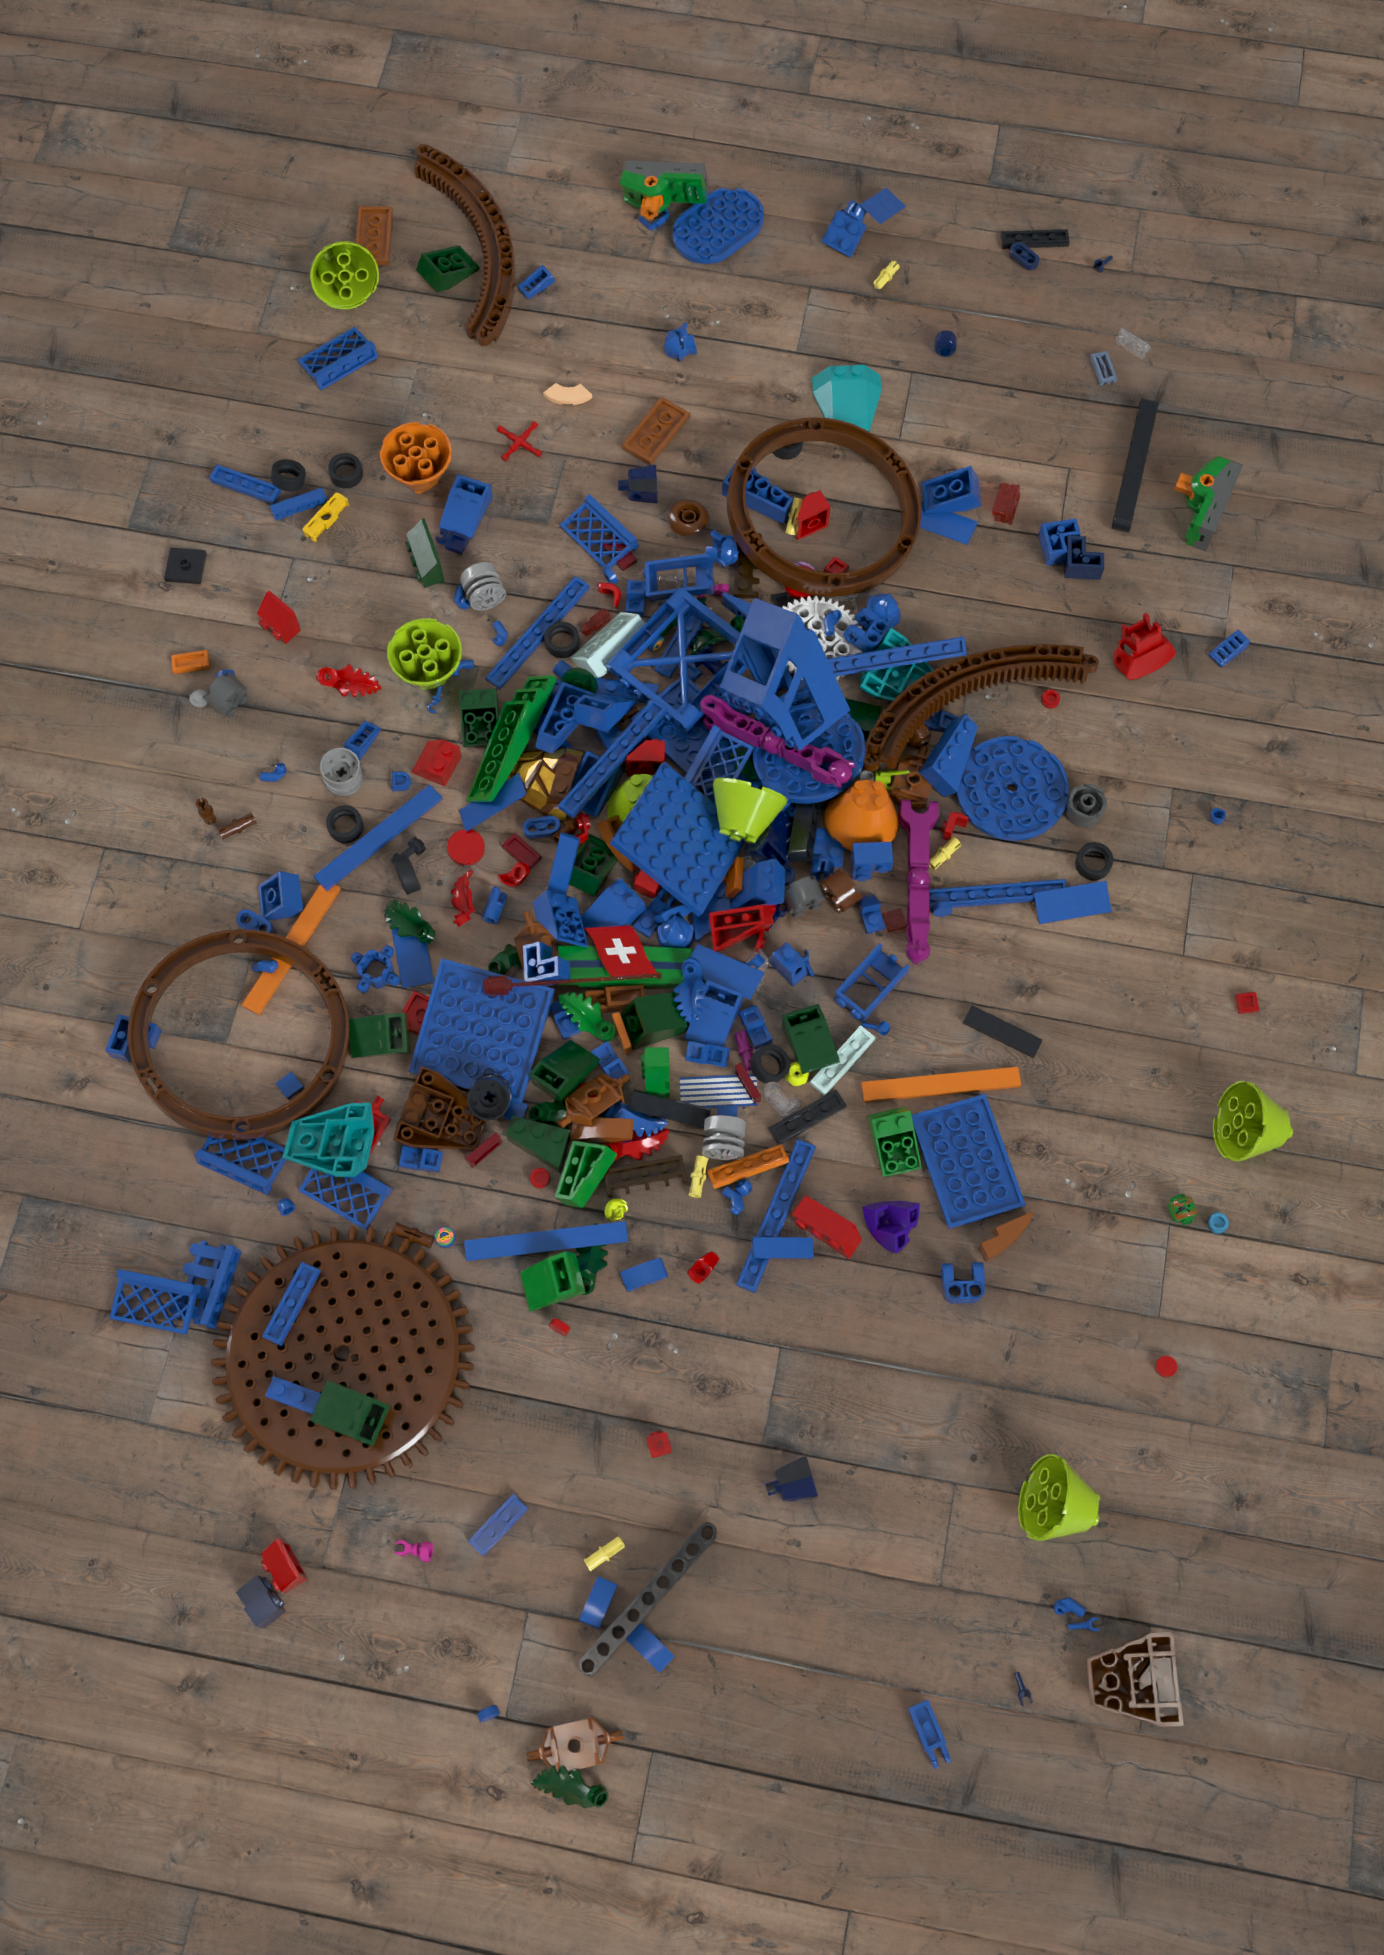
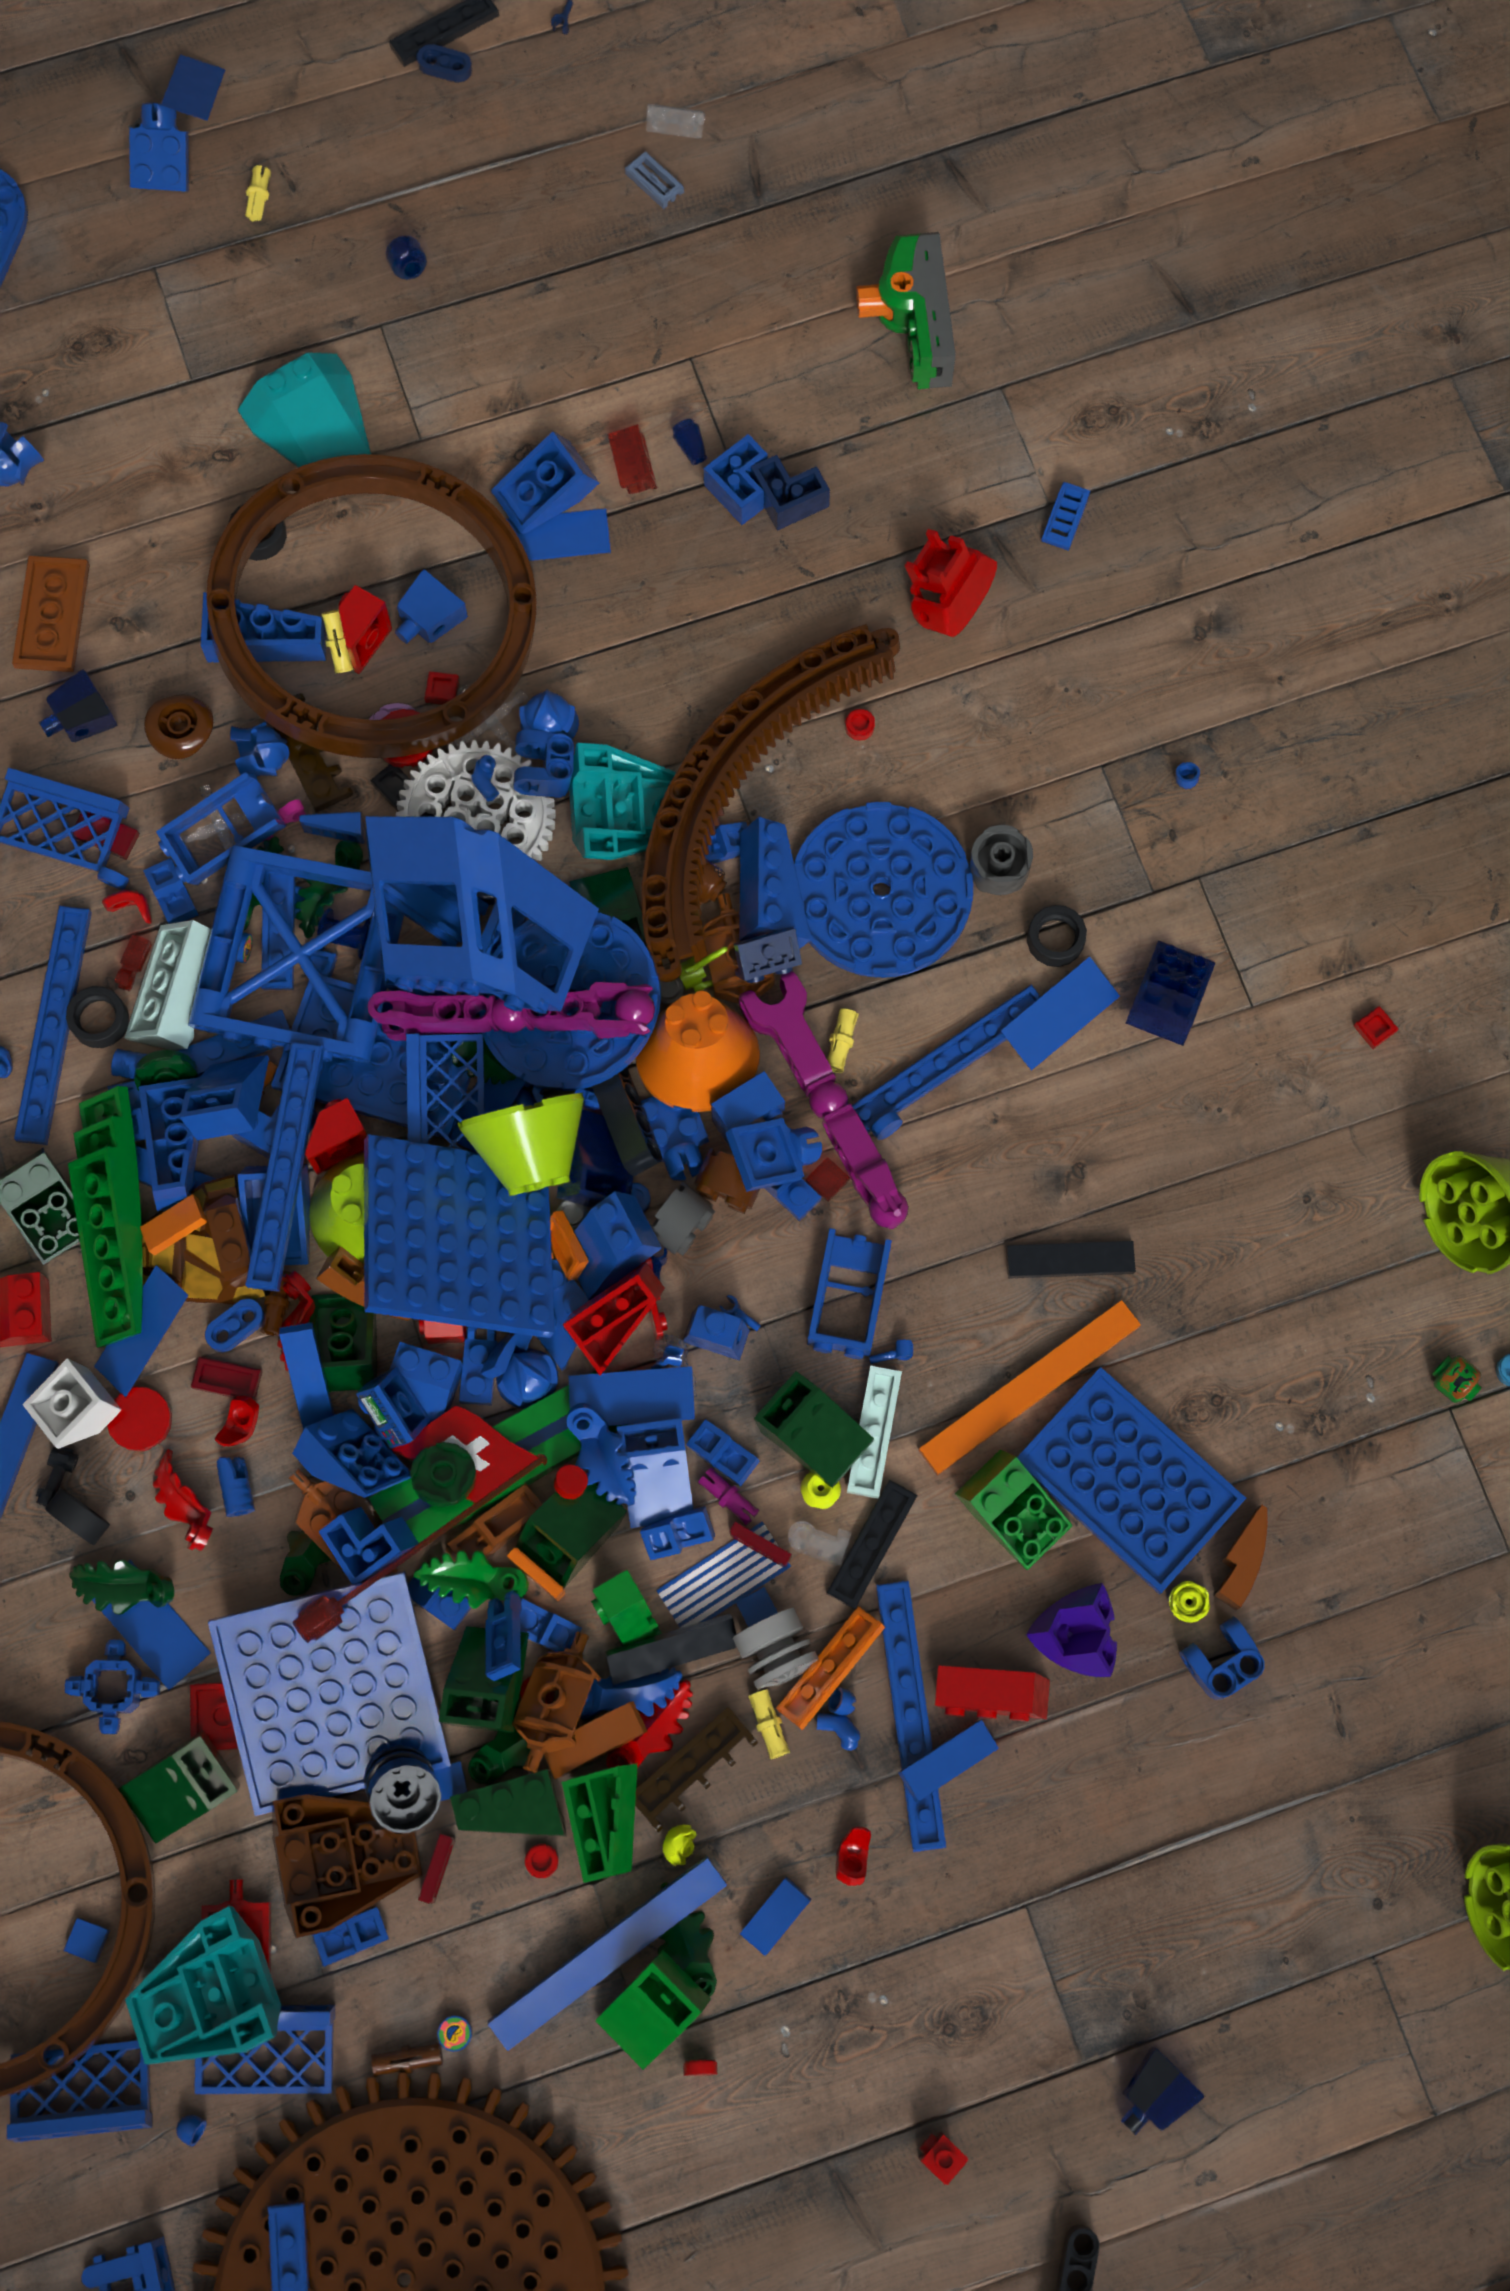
camera: 30 degrees left, 5 degrees up
(436, 819) = (71, 1405): none -> white slope
(539, 757) = (173, 1224): none -> orange tile
(586, 1051) = (503, 1636): none -> blue hinge
(596, 907) = (392, 1408): none -> blue slope
(603, 953) = (443, 1474): none -> dark green tile
(666, 994) = (570, 1481): none -> red tile
(781, 1057) = (790, 1481): black tyre -> none
(852, 525) = (428, 610): none -> blue torso
(871, 885) = (772, 1152): none -> blue plate
(898, 656) = (610, 781): blue tile -> none
(928, 785) = (767, 954): none -> dark blue bracket
(954, 819) = (826, 995): red bracket -> none
(967, 1237) = (1197, 1594): none -> neon yellow plate
(1043, 508) = (689, 439): none -> clear blue cone
(1135, 465) = (782, 307): black beam -> none
(1140, 923) = (1170, 993): none -> clear blue slope

